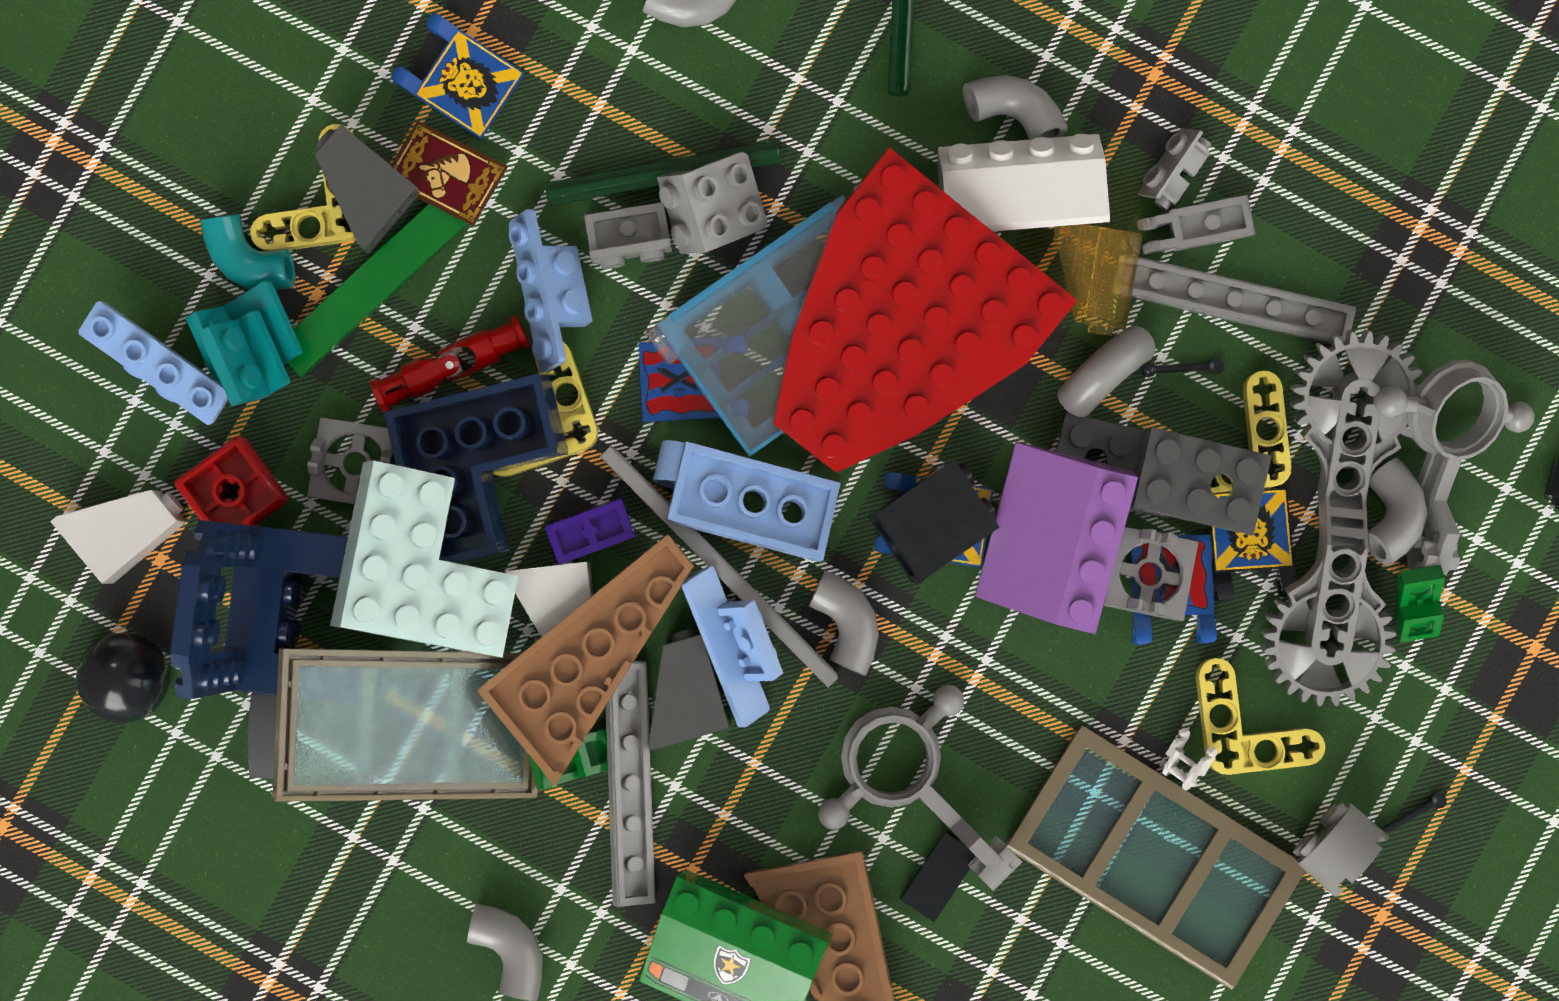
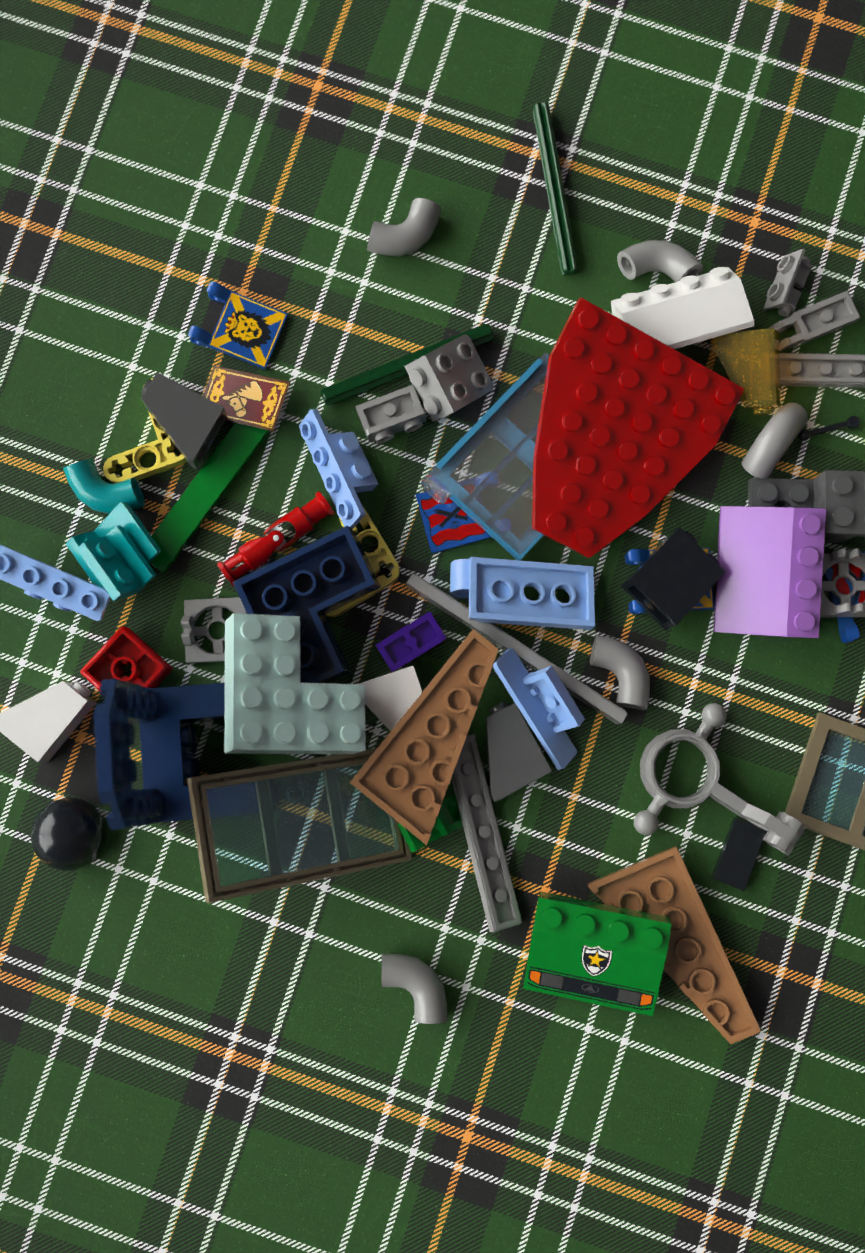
camera: 15 degrees left, 5 degrees down
(261, 735) = (187, 855): dark grey slope -> none

